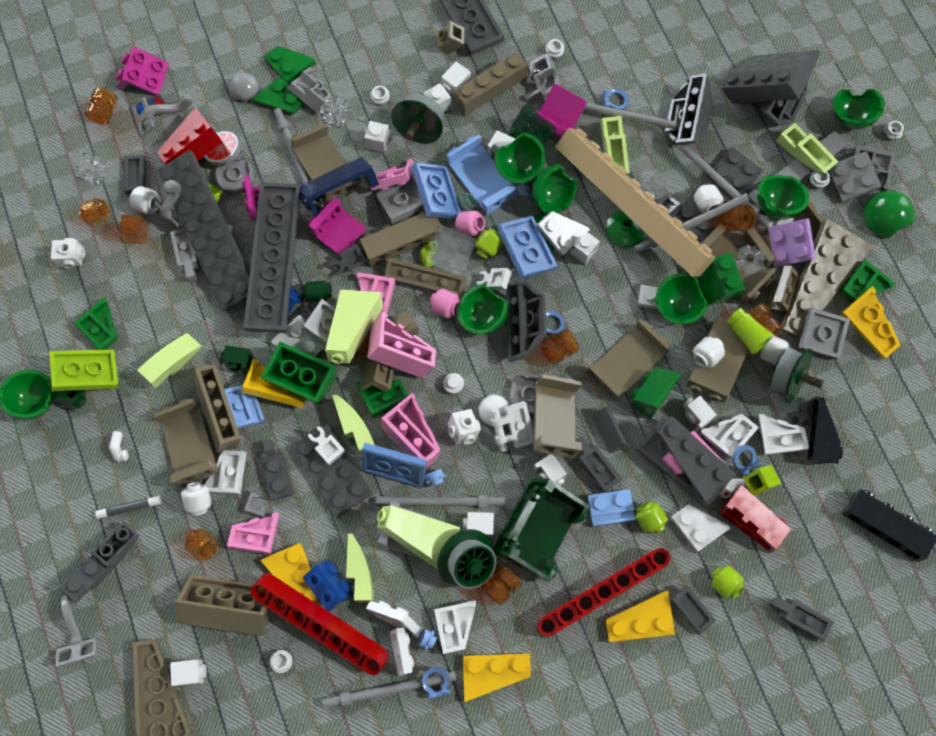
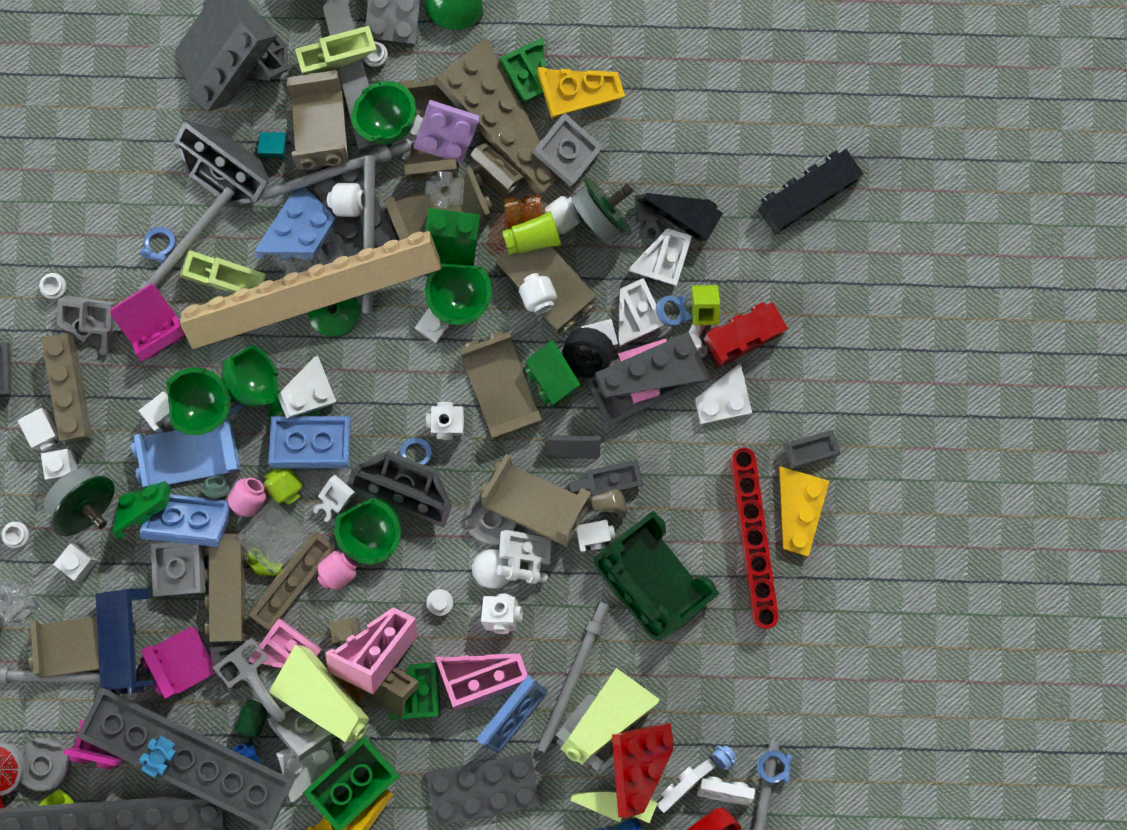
camera: 75 degrees left, 10 degrees up
(267, 237) = (161, 752): none -> dark azure piece
(328, 447) = (459, 784): white plate -> none
(348, 275) = (248, 673): none -> light grey piece
(352, 423) = (441, 742): yellowish green slope -> none
(394, 176) = (140, 562): bright pink wing -> none
(394, 572) = (638, 765): none -> red plate
(433, 158) = (140, 506): none -> green wing
(435, 477) = (544, 671): light blue plate -> none
(454, 625) = (721, 719): white wing -> none
(467, 559) = (658, 675): dark green piece -> none
(480, 521) = (621, 644): white brick -> none
(492, 672) = (788, 698): yellow wing -> none
(501, 585) = (699, 648): clear orange wheel -> none
(532, 123) = (155, 366): clear green plate -> none
(561, 345) = (451, 458): clear orange wheel -> none
(582, 472) = (610, 502): none -> dark tan hair
(585, 248) = (339, 373): white brick -> none
(585, 331) = (454, 427): none -> white brick
(611, 508) = (662, 485): light blue plate -> none
(651, 517) = (693, 446): lime head -> none
(671, 176) = (298, 228): none -> medium blue wing
(695, 407) = (591, 338): none -> black tyre
(719, 140) = (272, 145): none -> teal slope
(727, 582) = (798, 397): lime head -> none
(738, 218) = (389, 176): clear orange wheel -> none
(754, 159) = (318, 120): none -> dark tan panel
(803, 617) = (868, 334): dark grey hinge -> none

